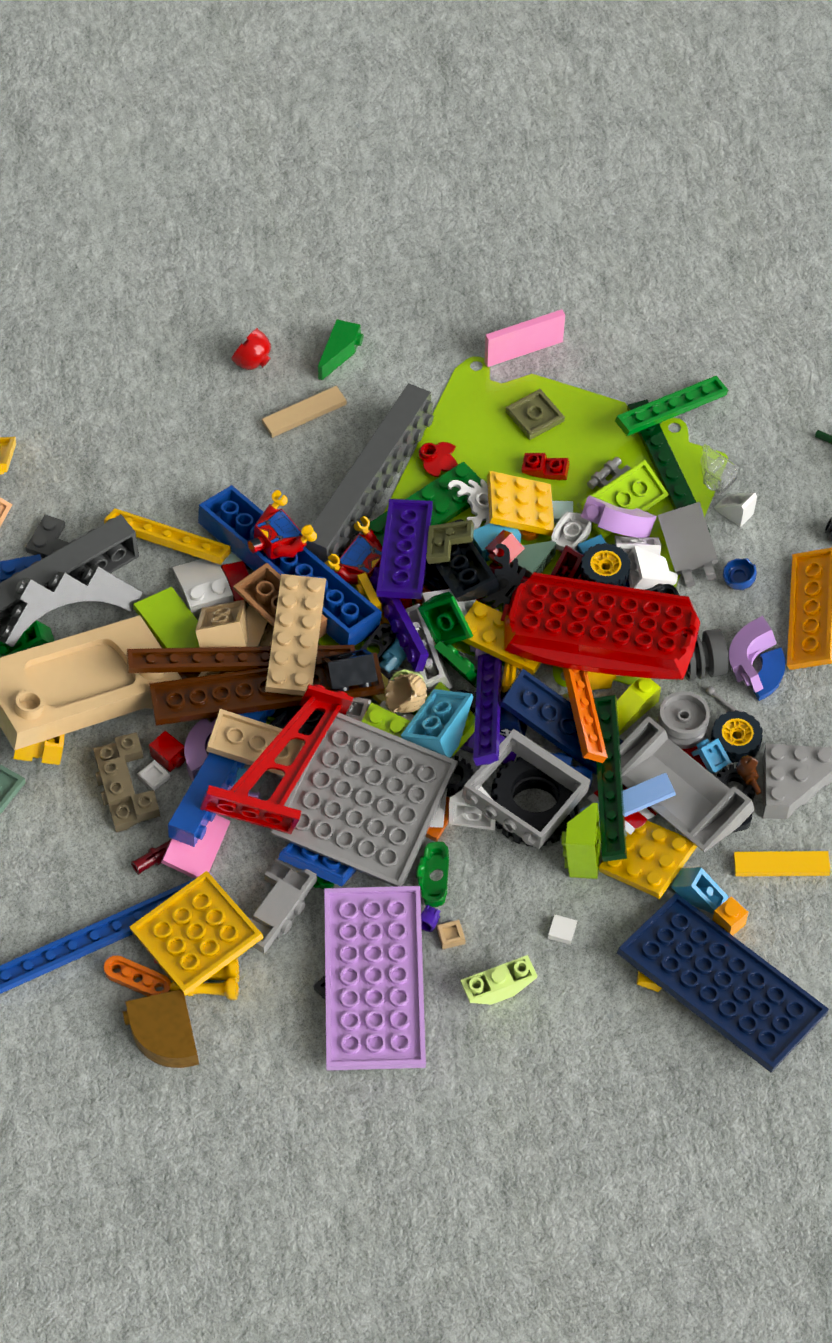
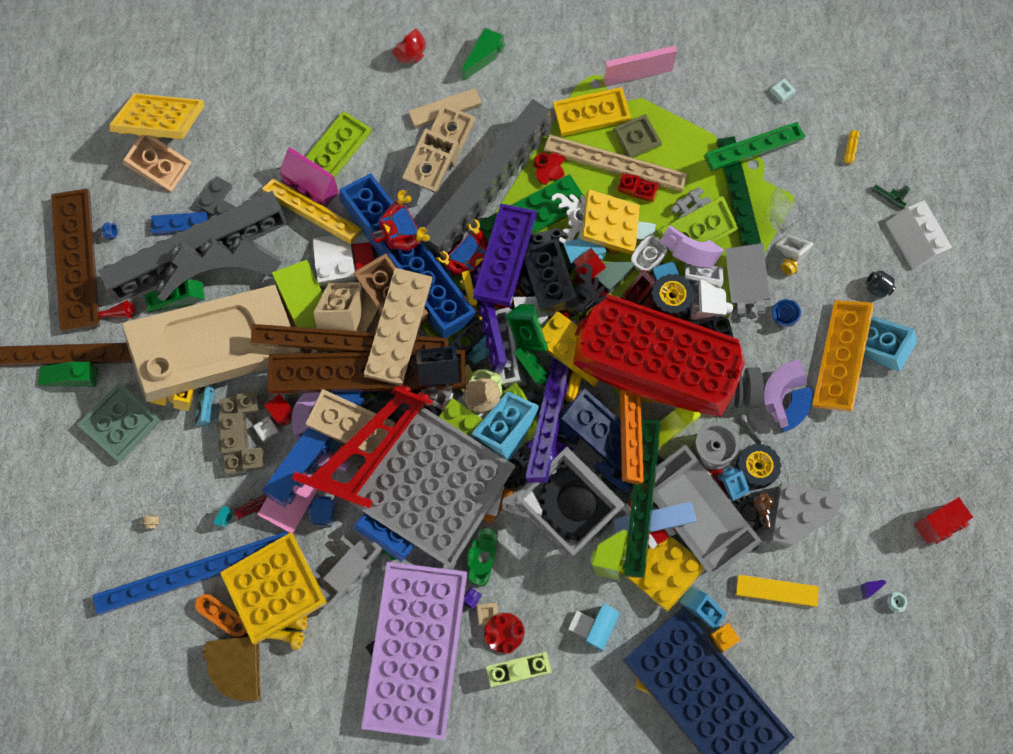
camera: 10 degrees right, 15 degrees up
(33, 889) = (150, 521): none -> tan plate
(74, 759) = (204, 405): none -> medium azure slope
(120, 872) = (223, 517): none -> teal tile
(157, 499) = (308, 178): none -> dark pink slope
(182, 468) = (339, 143): none -> lime tile
(237, 851) = (322, 511): none -> blue brick
(307, 451) = (439, 148): none -> tan bracket
(443, 536) = (541, 247): olive plate -> none
(474, 949) = (504, 632): none -> red dish
(477, 393) = (591, 111): none -> yellow plate
(514, 444) = (615, 162): none -> tan tile
(587, 926) = (602, 627): none -> medium azure brick
(694, 346) = (782, 90): none -> light aqua tile
(735, 526) = (789, 266): none -> yellow plate
(783, 395) = (851, 147): none -> yellow axle

